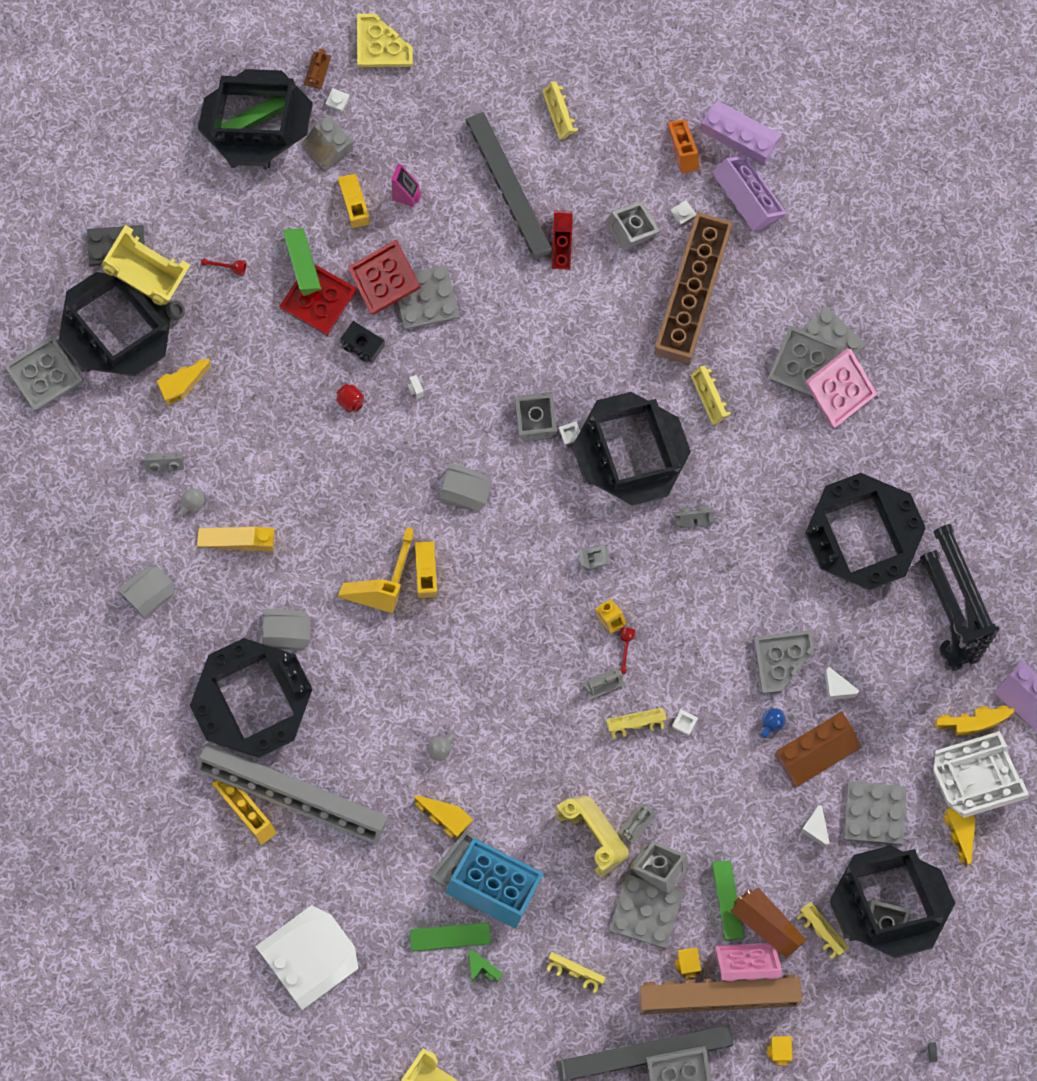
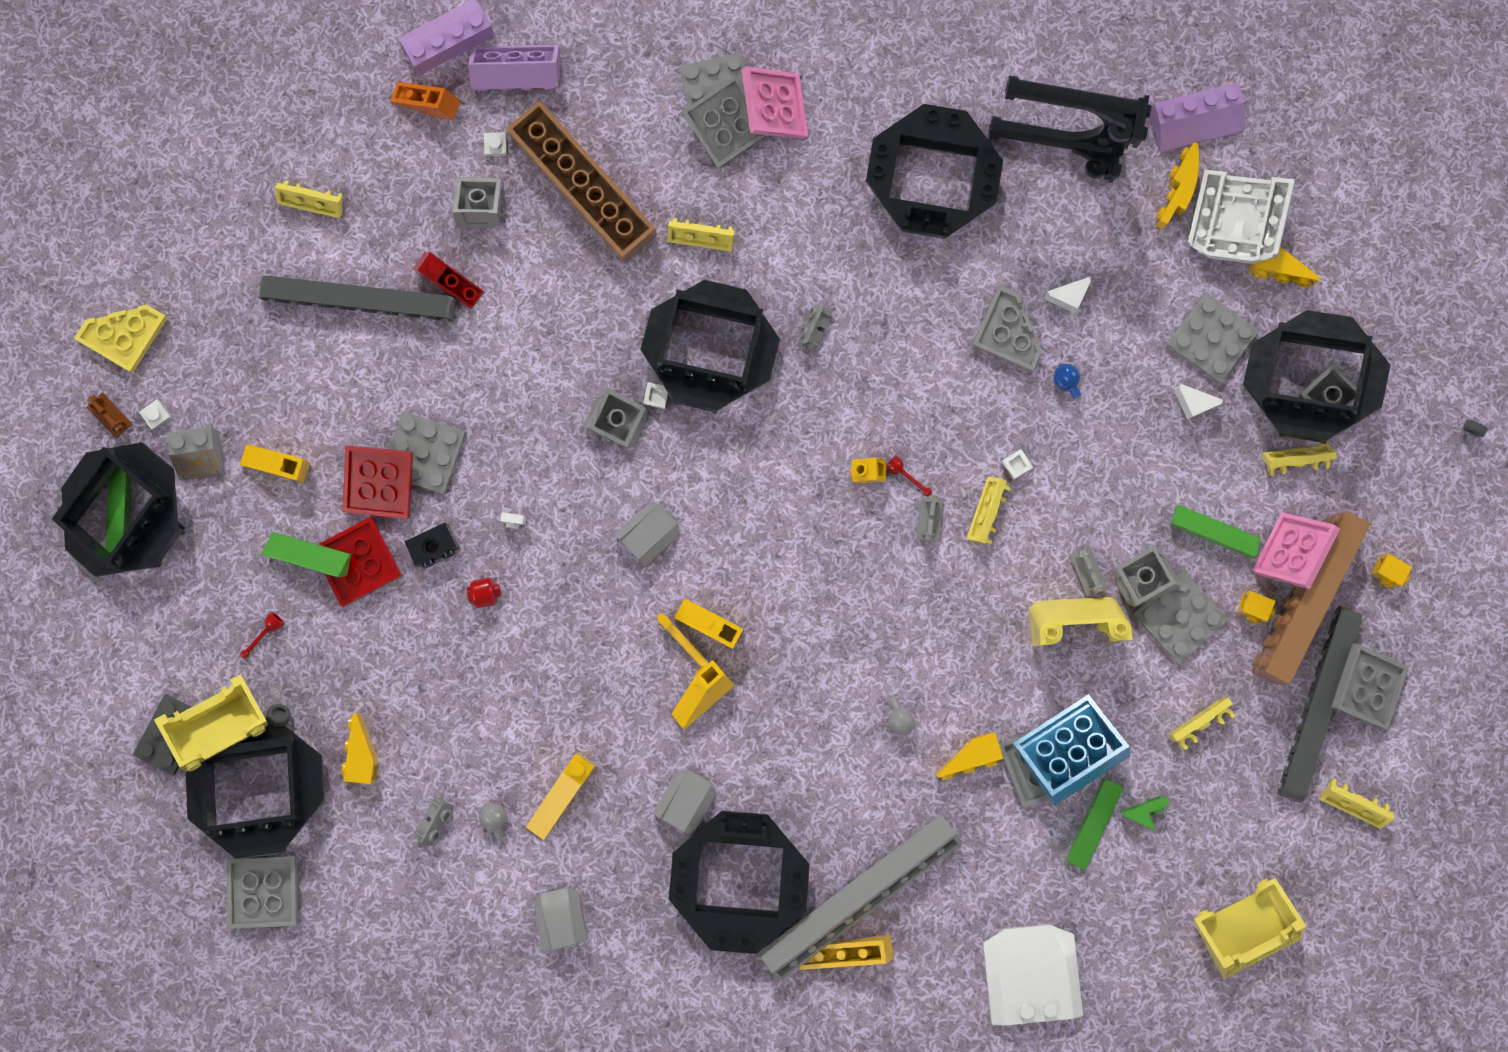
camera: 55 degrees left, 10 degrees up
(405, 187) = (294, 403): dark pink slope -> none
(594, 557) = (798, 450): light grey bracket -> none
(768, 921) = (1263, 506): dark orange slope -> none
(818, 749) = (1118, 352): dark orange slope -> none

